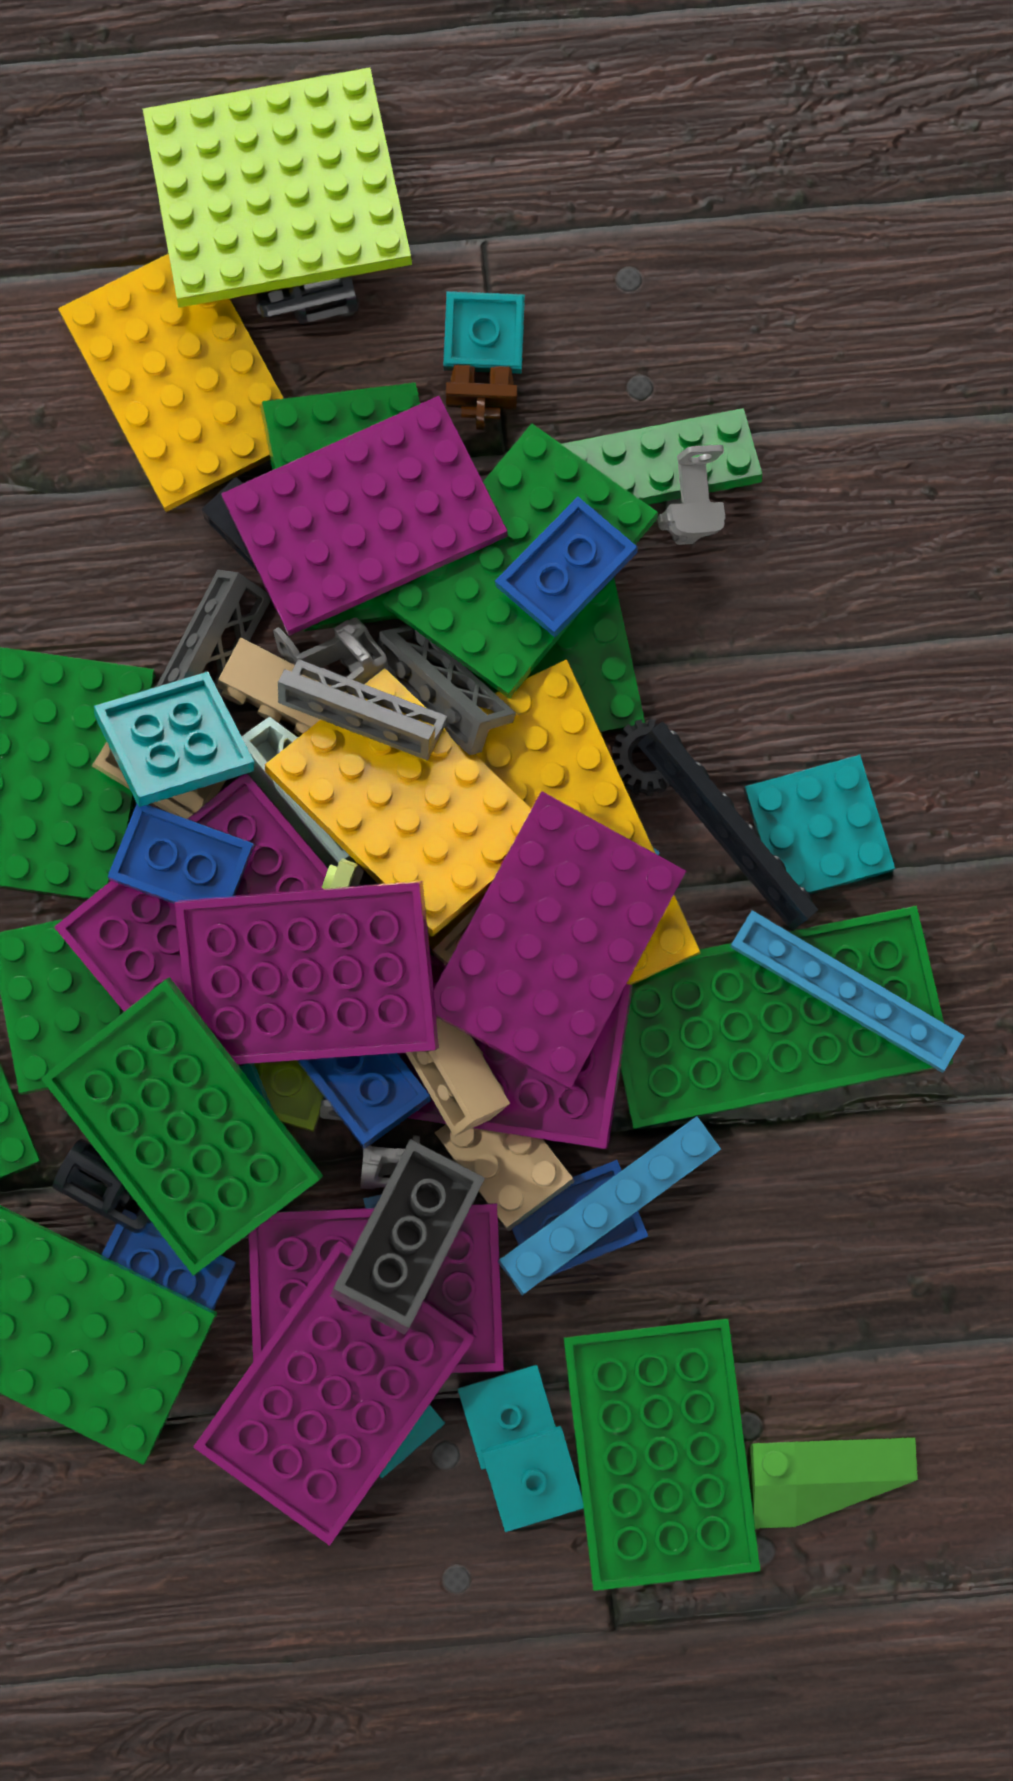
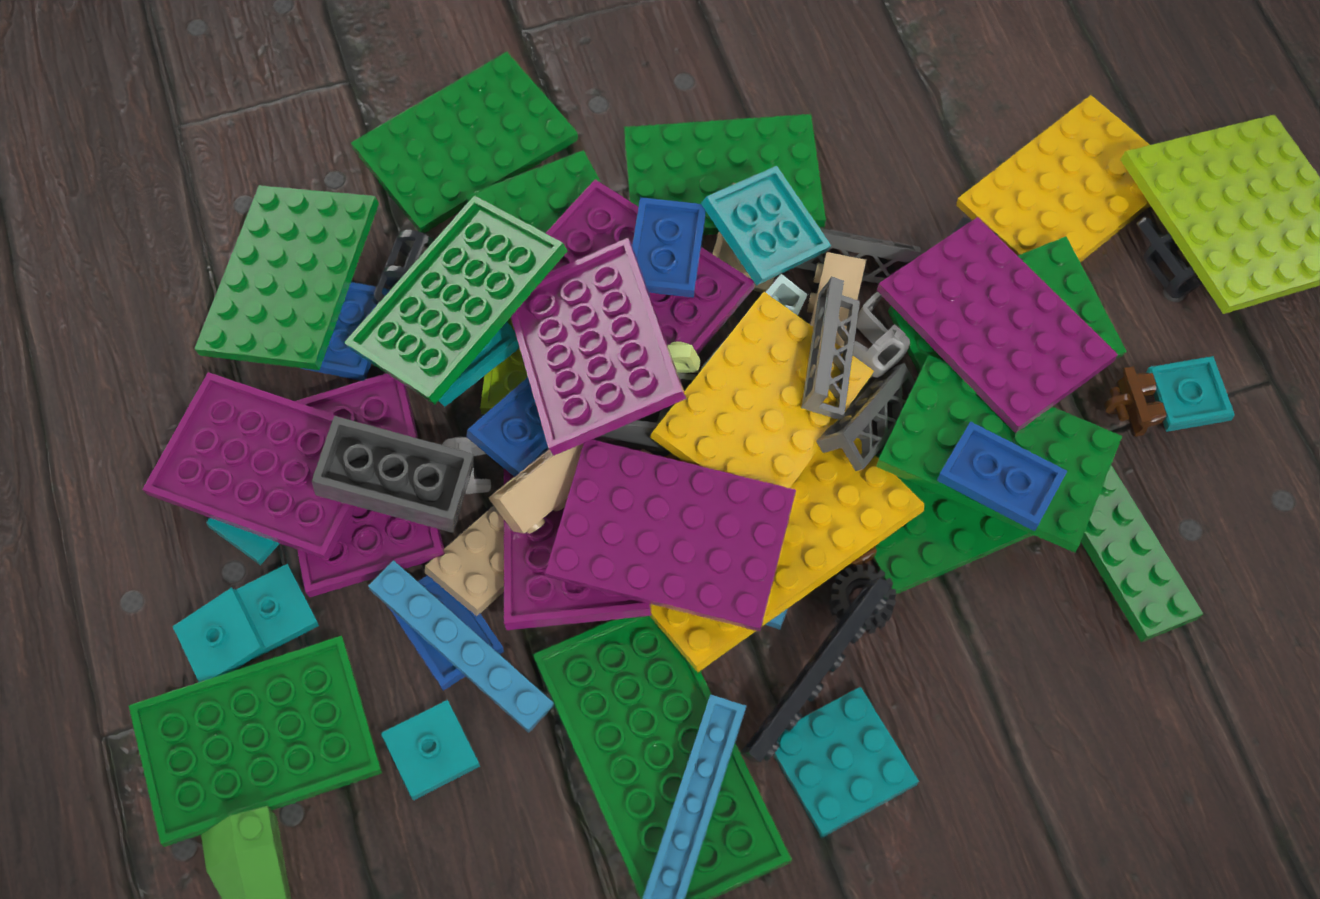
camera: 80 degrees right, 15 degrees down
(693, 513) = (1089, 584): light grey piece -> none
(712, 1262) = (430, 750): none -> teal plate

